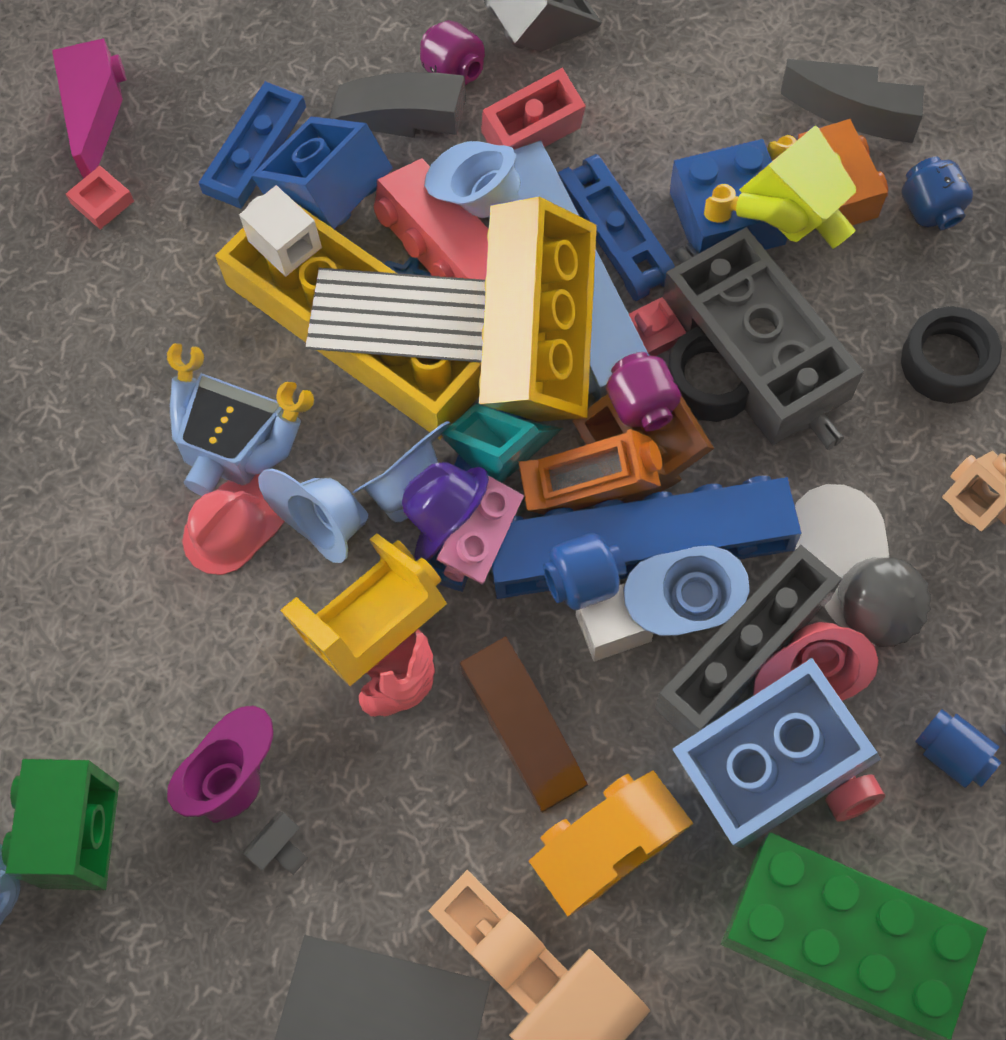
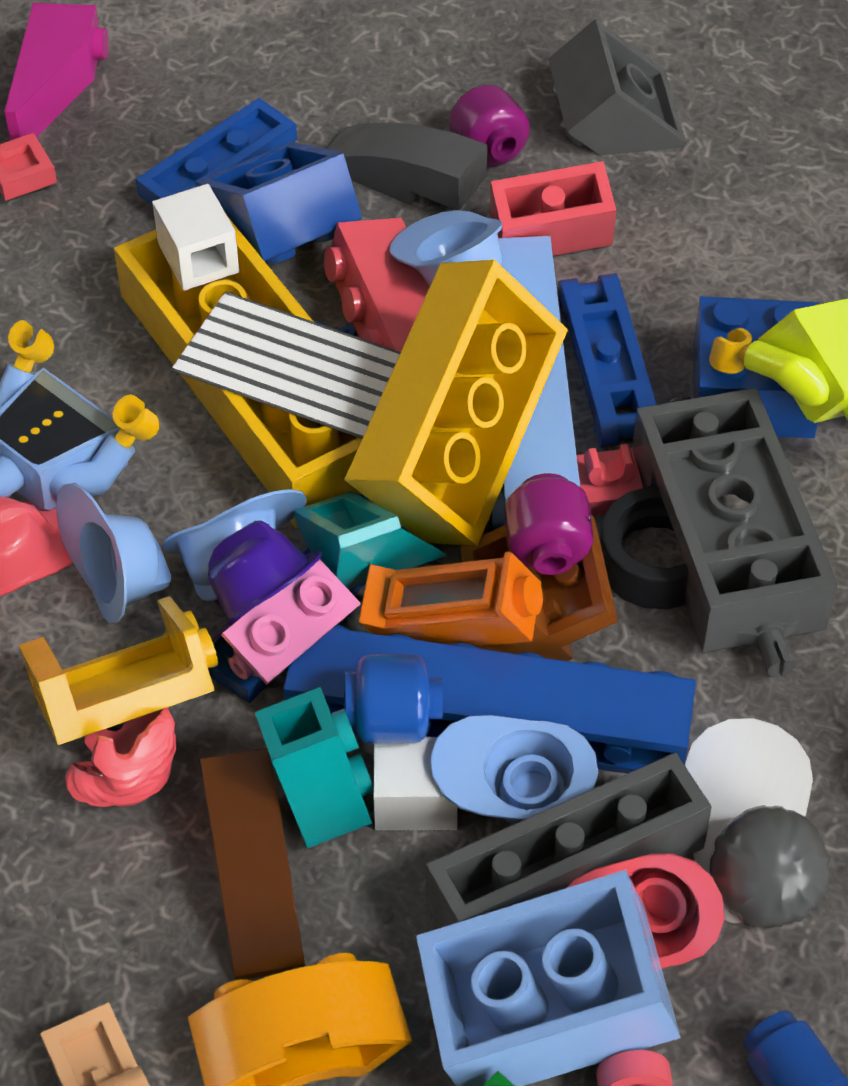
camera: 15 degrees right, 15 degrees down
(547, 638) = (313, 767): none -> teal brick

